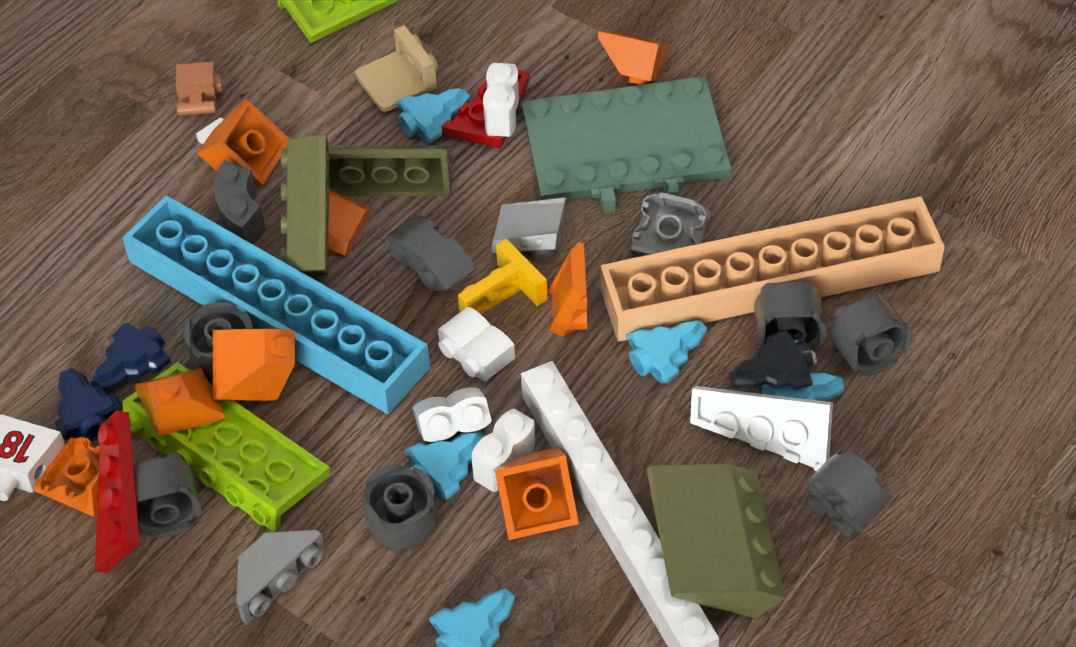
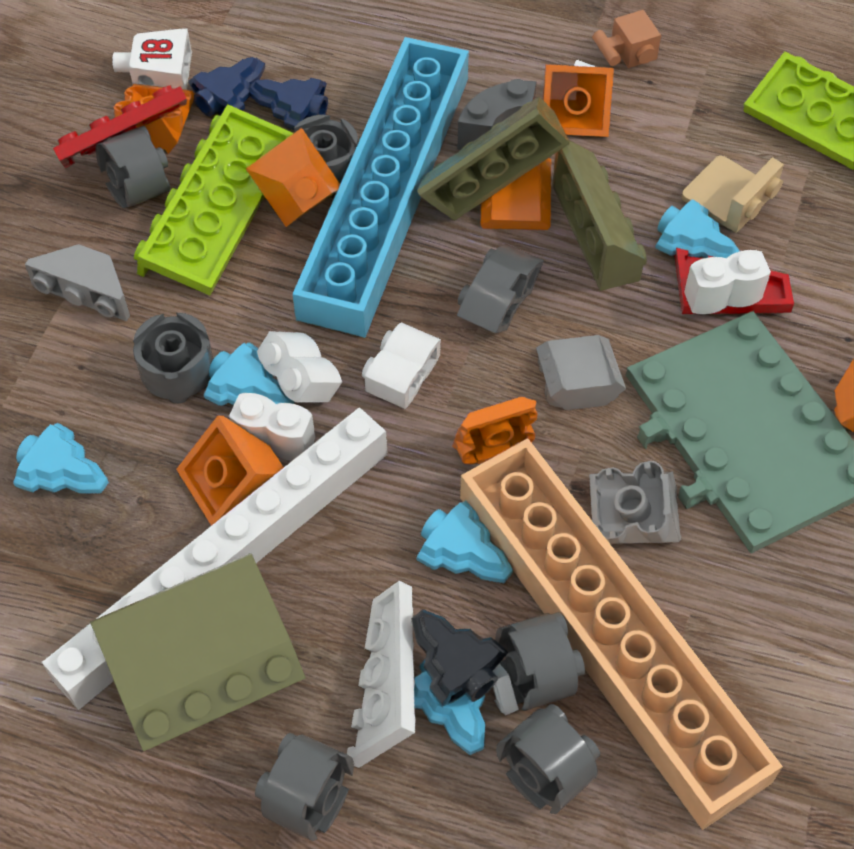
camera: 70 degrees right, 5 degrees up
(179, 402) = (233, 139): orange slope -> none
(513, 275) = (489, 363): yellow bracket -> none

